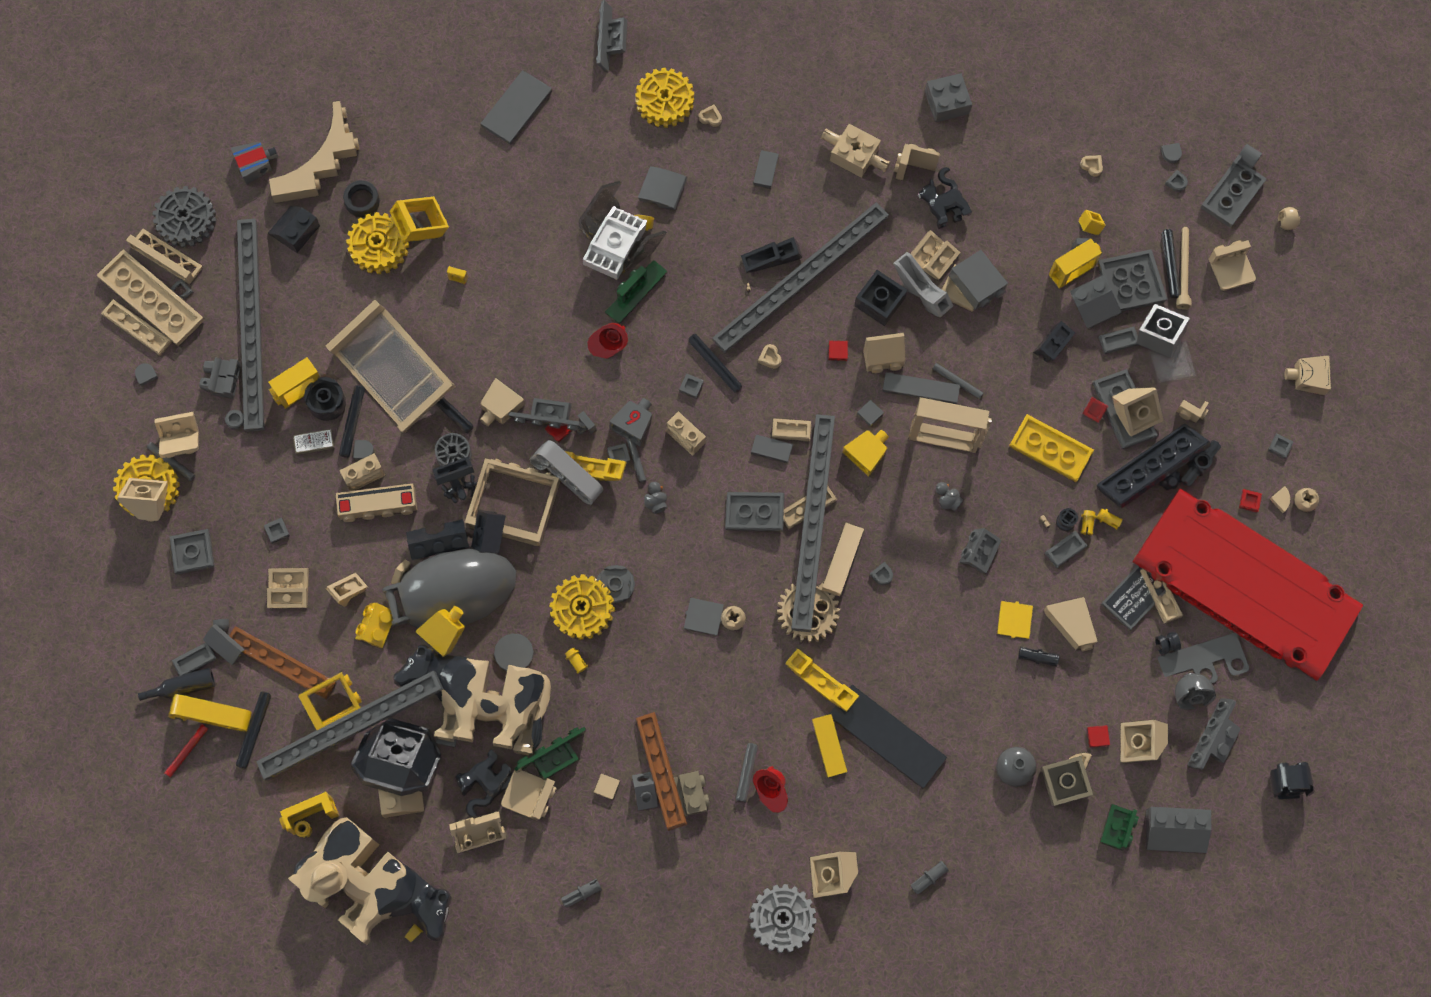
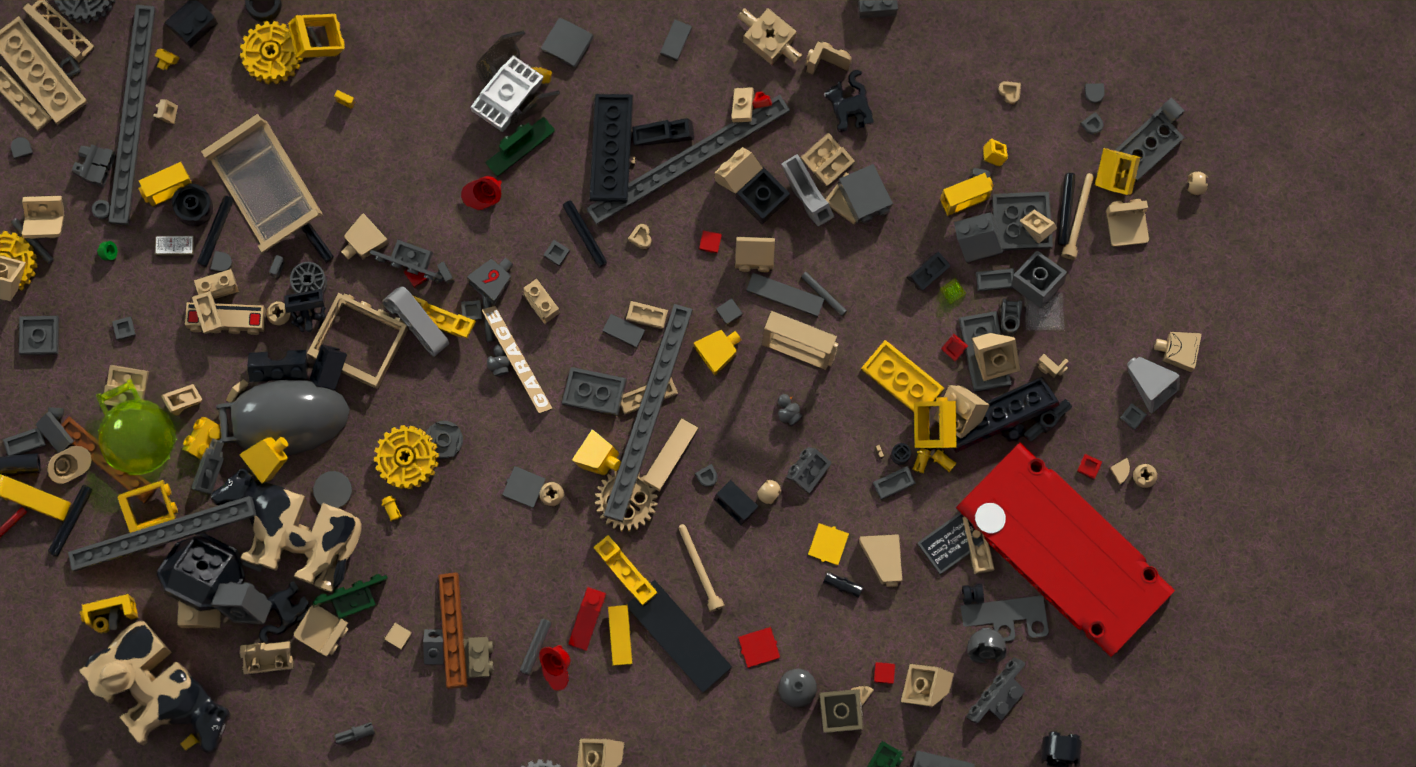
camera: 10 degrees right, 5 degrees up
(243, 673) = (69, 464): none -> tan piece
(247, 457) = (107, 250): none -> green tile
(275, 266) = (166, 58): none -> yellow tile
(284, 315) = (166, 111): none -> tan tile
(304, 631) = (134, 433): none -> clear neon green windscreen
(315, 819) = (114, 617): none -> dark grey tile
(358, 498) = (207, 312): none -> tan plate
(386, 651) = (209, 467): none -> dark grey hinge
(419, 444) = (277, 267): none -> dark grey tile
(422, 490) = (272, 310): none -> tan piece
(444, 780) = (242, 603): none -> dark grey brick
(673, 493) = (516, 359): none -> tan sticker
(725, 278) = (611, 147): none -> black tile
(771, 572) = (597, 455): none -> yellow torso
(793, 735) = (587, 618): none -> red slope
(843, 217) = (742, 104): none -> tan plate
(852, 277) = (738, 170): none -> tan slope
(860, 210) = (761, 100): none -> red tile
(915, 695) = (714, 601): none -> tan piece
(916, 594) = (735, 502): none -> black hinge
(947, 578) = (769, 491): none -> tan piece
(969, 733) = (759, 647): none -> red piece
(1081, 357) = (952, 291): none -> clear neon green tile
(1109, 482) = (947, 423): none -> yellow window
(1116, 467) = (969, 409): none -> tan slope
(1142, 368) = (1010, 314): none -> dark grey piece
(1151, 281) = (1038, 225): none -> tan slope
(1170, 564) = (990, 517): none -> white sticker
(1212, 218) = (1117, 171): none -> yellow slope
(1293, 409) = (1153, 382): none -> light grey slope

